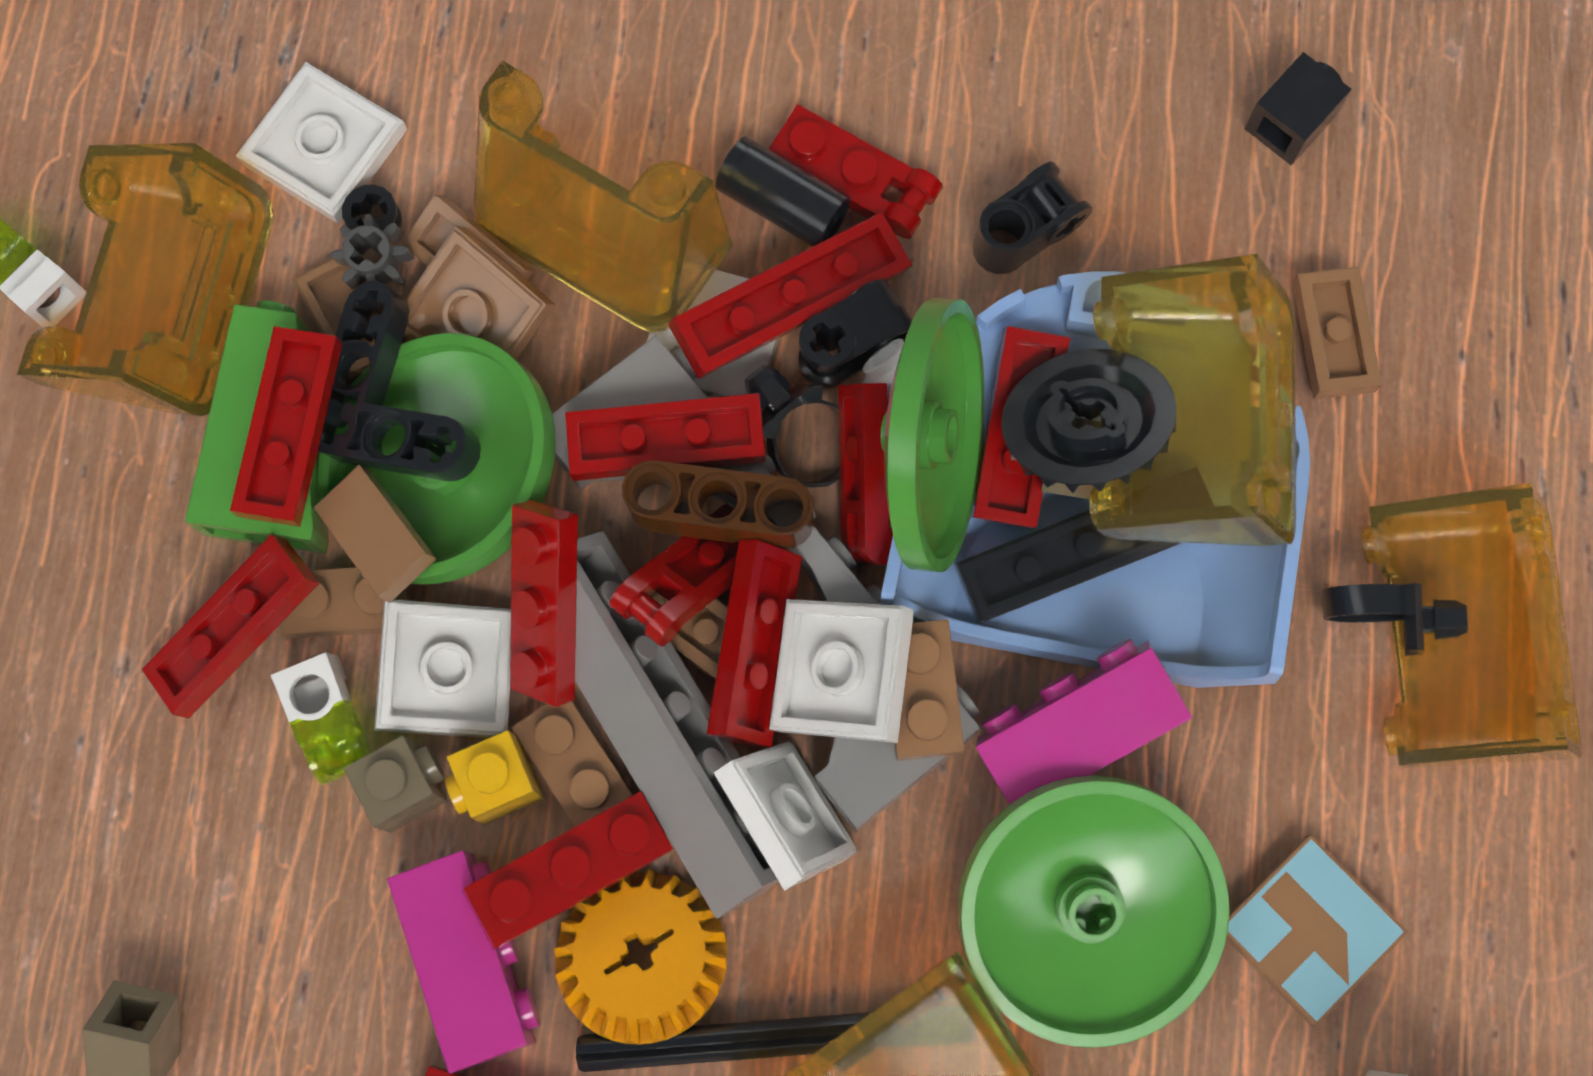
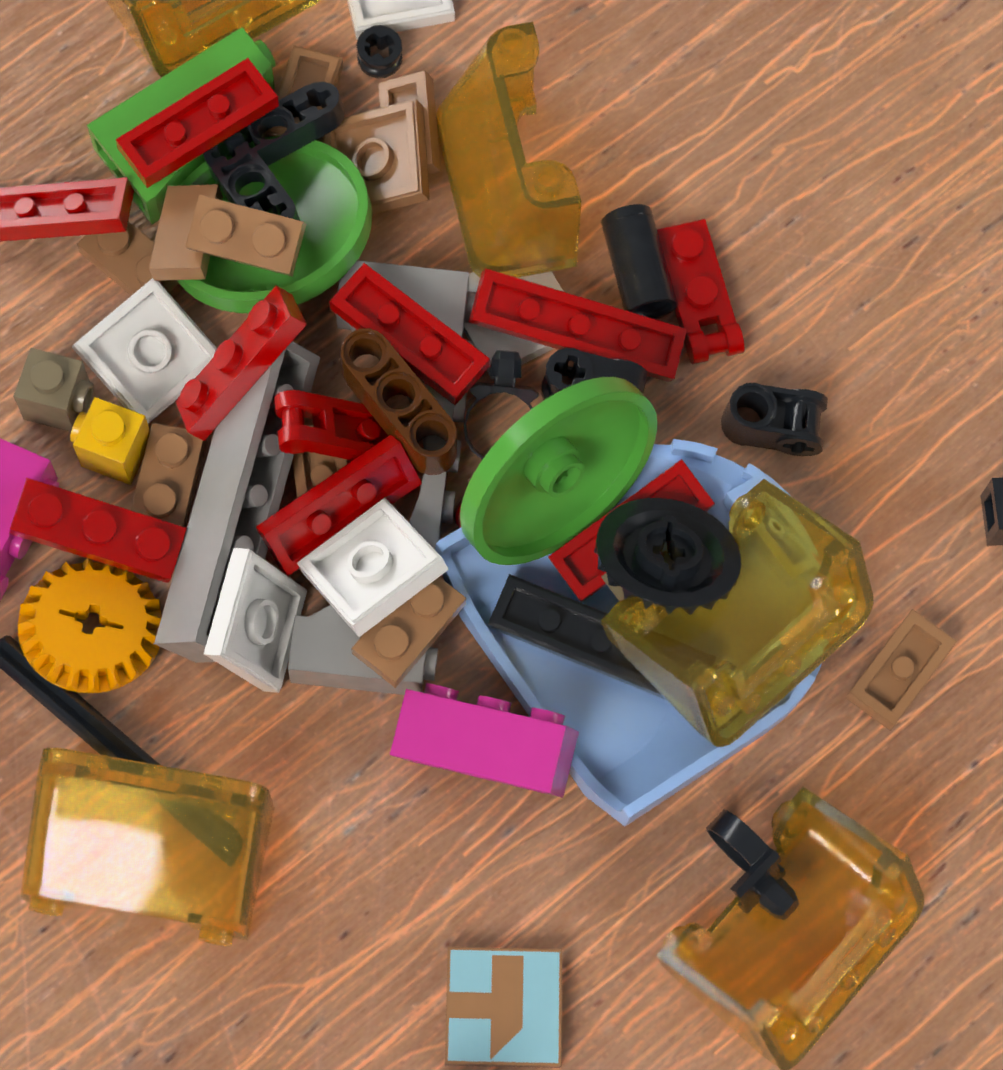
camera: 35 degrees right, 5 degrees down
(322, 715) = (53, 309): leg -> none
(366, 237) = (351, 58): dark grey gear -> none
(439, 487) = (245, 235): none -> medium nougat plate
(1093, 911) = (377, 856): bright green dish -> none

